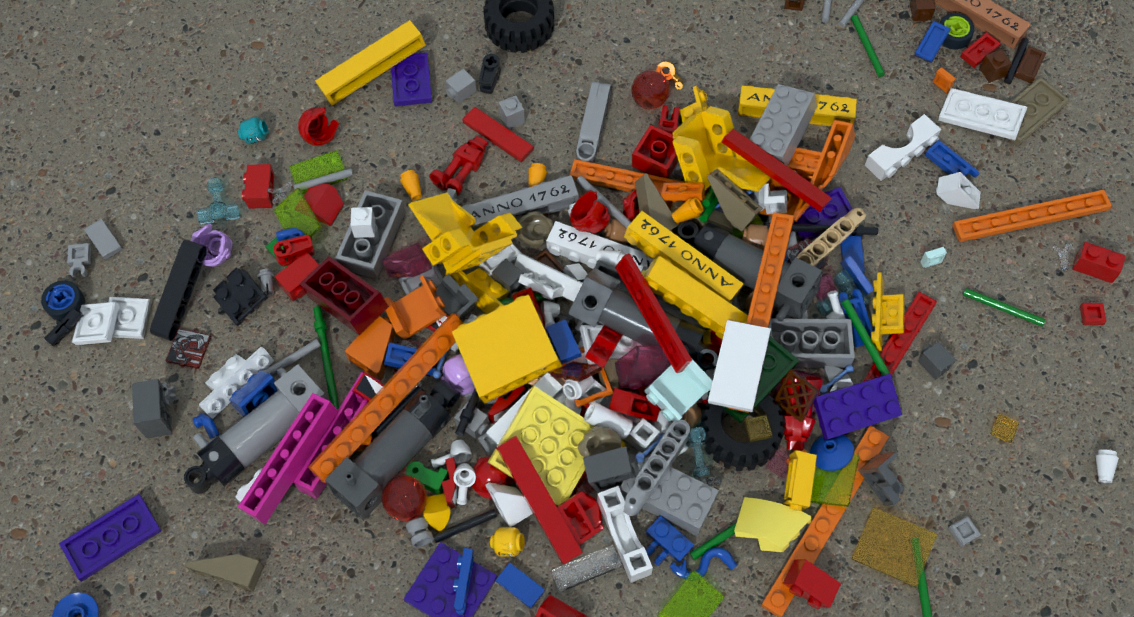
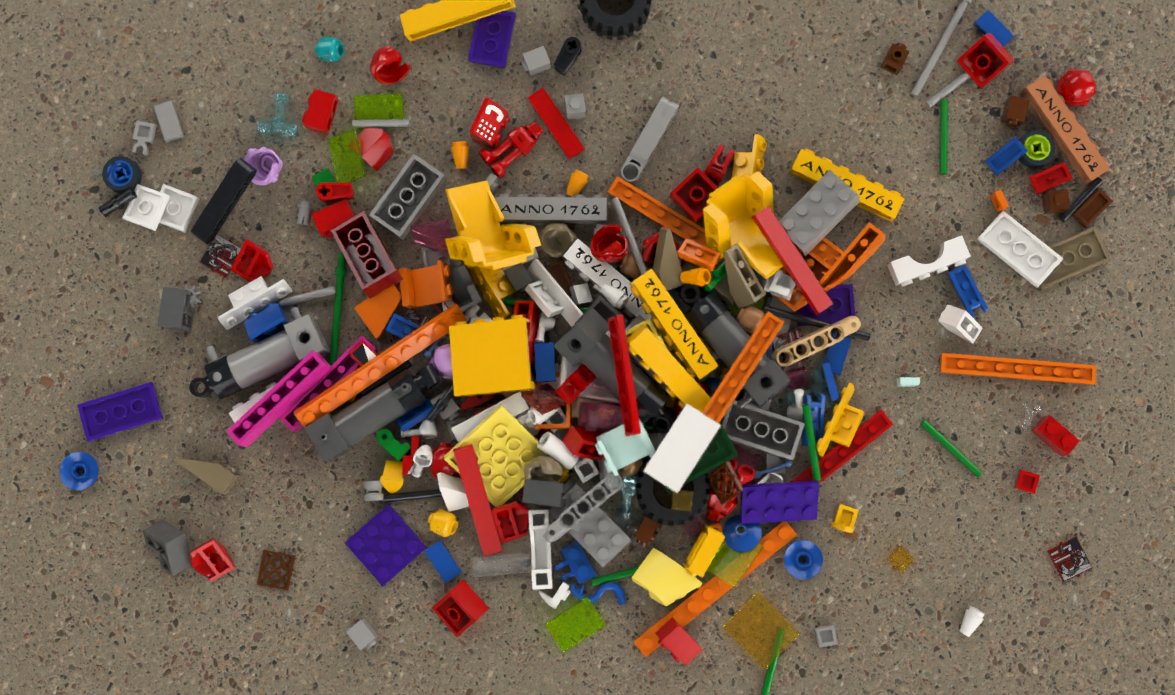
camera: 20 degrees right, 20 degrees up
(208, 423) = (222, 335): blue arm -> none
(223, 341) = (252, 262): none -> red slope
(238, 295) = (276, 218): black plate -> none
(281, 192) = (339, 124): clear bar -> none
(289, 234) = (336, 172): blue arm -> none
(363, 222) = (401, 191): white brick -> none
(404, 498) = (368, 460): clear red piece -> none
(432, 147) = (489, 124): none -> red slope
(437, 445) = (415, 416): none -> blue plate
(462, 583) = (394, 548): blue hinge -> none
(640, 456) = (574, 491): medium blue hinge -> none
(650, 89) = (713, 125): clear red piece -> none
(664, 577) = (562, 593): none -> white plate
(671, 75) = (740, 111): plate -> none
(731, 480) = (646, 531): none -> reddish brown brick
(882, 479) = (775, 572): dark grey panel -> none
(913, 452) = (813, 561): none -> blue dish
(930, 406) = (845, 518): none -> yellow tile
(936, 360) = (867, 479): dark grey brick -> none

